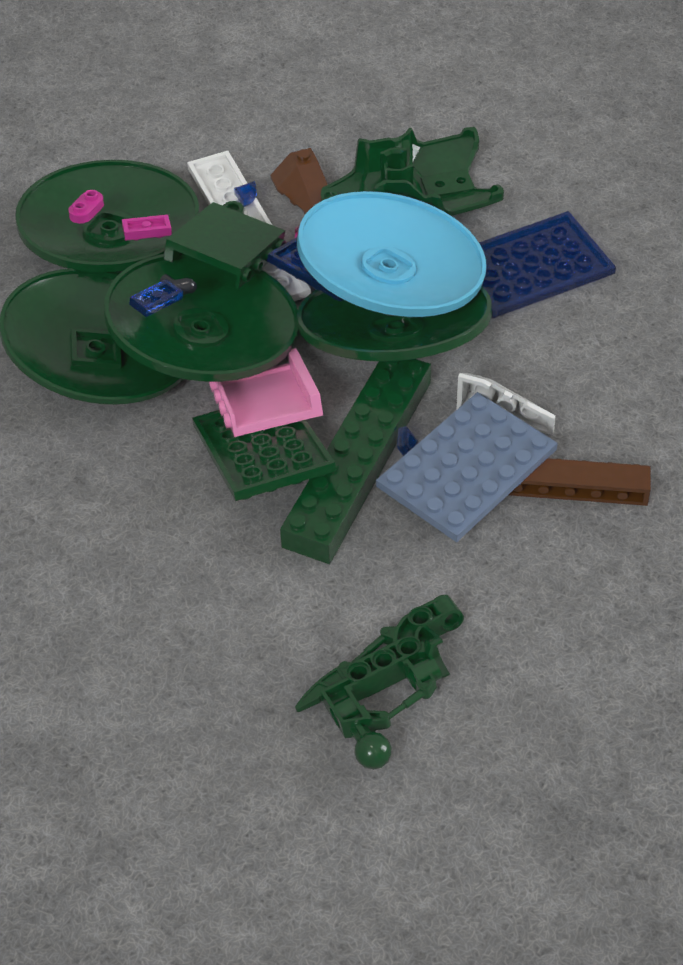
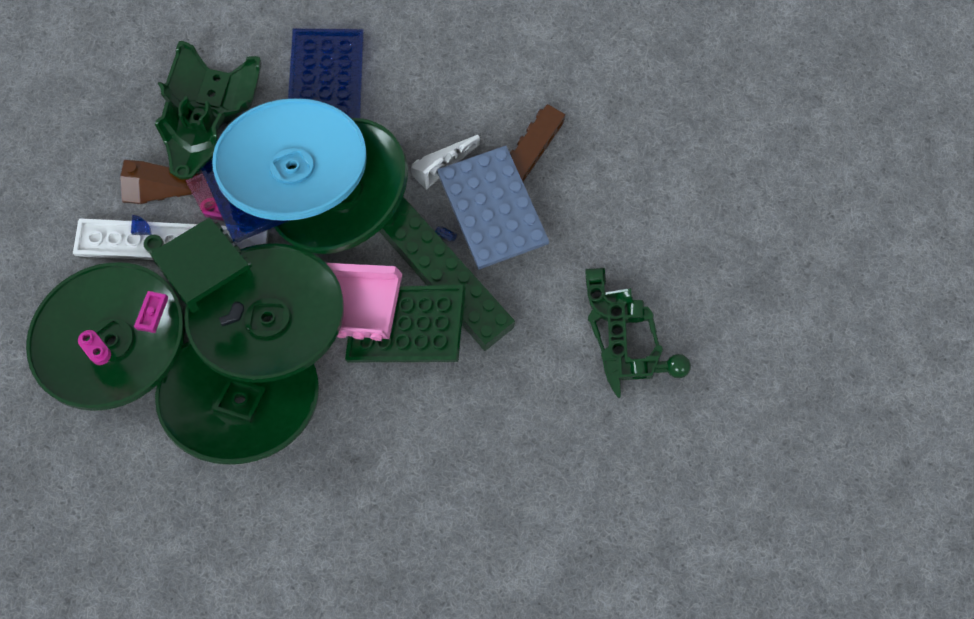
camera: 70 degrees left, 20 degrees up
(156, 297) = (243, 335): clear blue plate -> none

